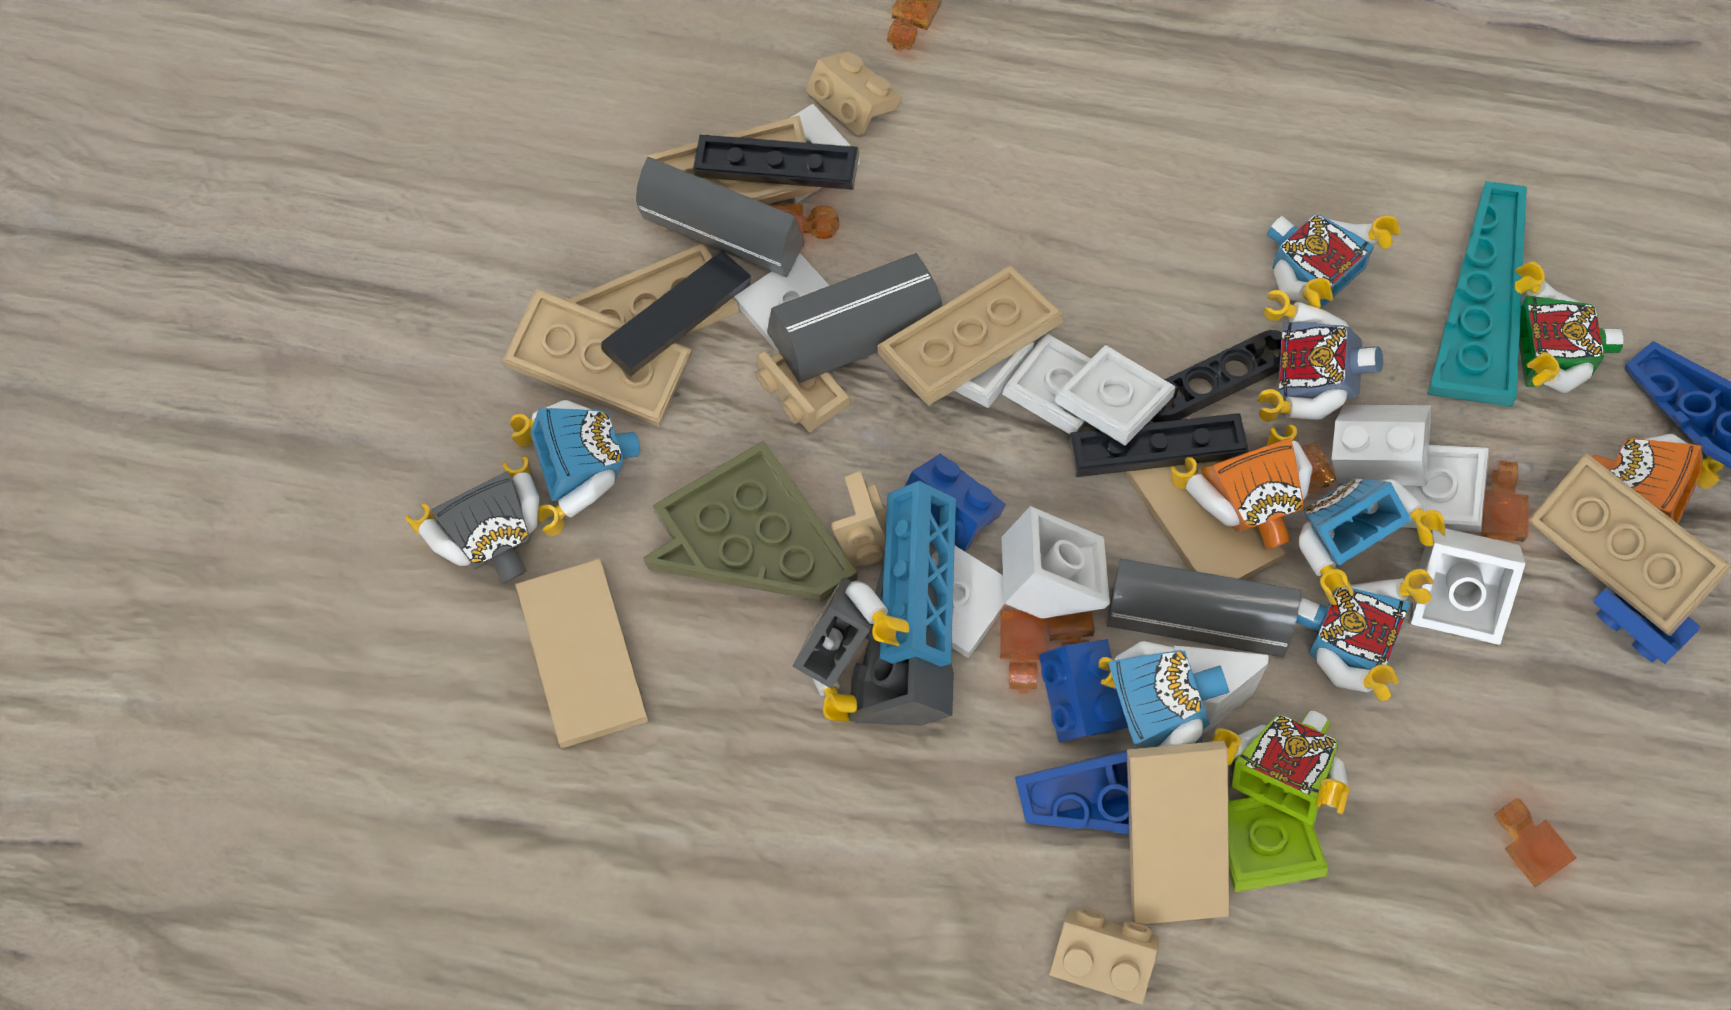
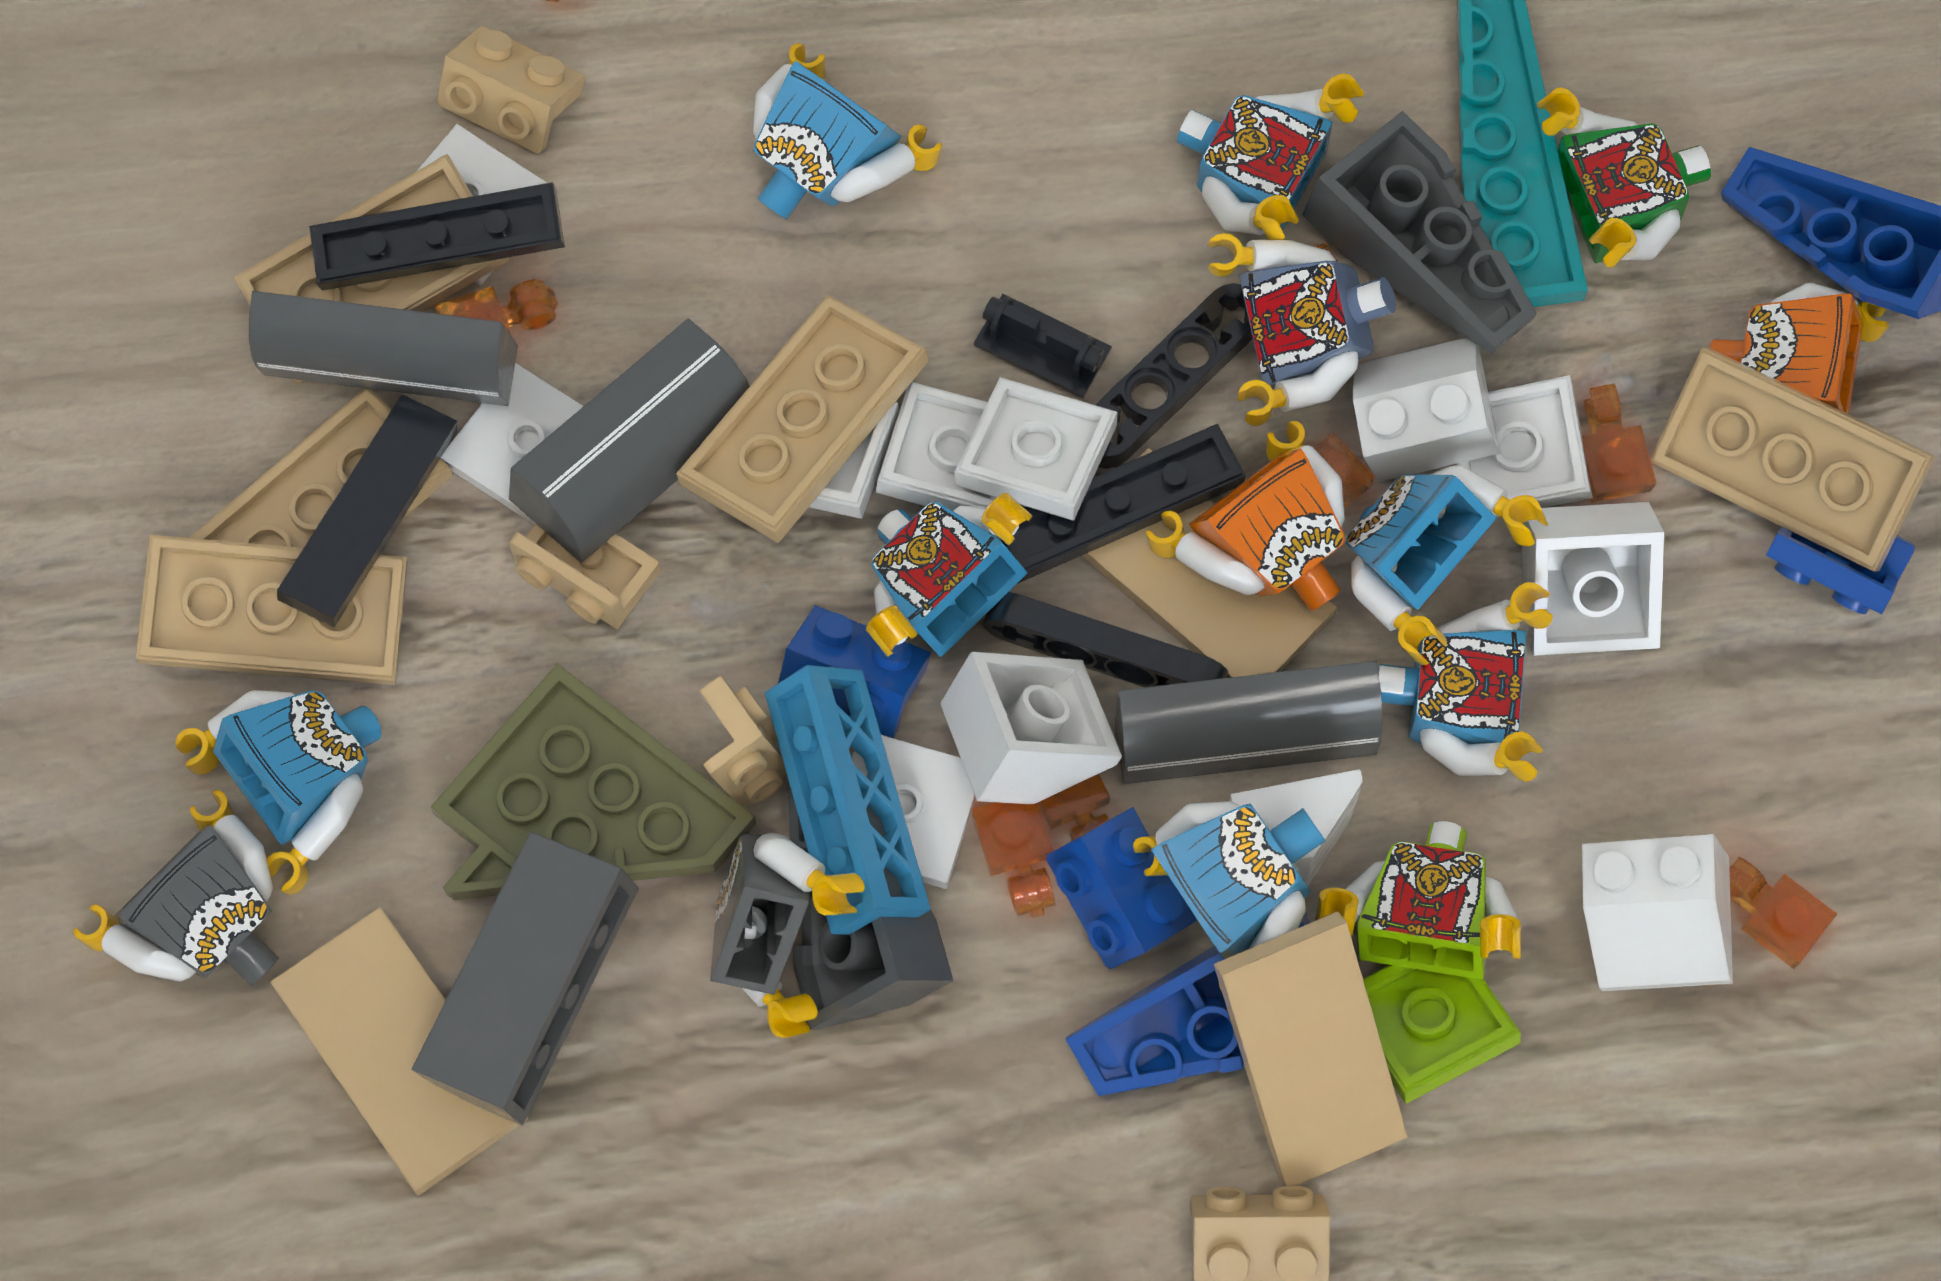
camera: 20 degrees left, 5 degrees up
(674, 628) = (526, 977): none -> dark grey brick
(1030, 453) = (943, 571): none -> torso
(1041, 173) = (826, 140): none -> torso
(1118, 530) = (1097, 643): none -> black beam
(1139, 334) = (1041, 345): none -> black hinge
(1407, 316) = (1407, 221): none -> dark grey wedge
(1449, 816) = (1658, 912): none -> white slope

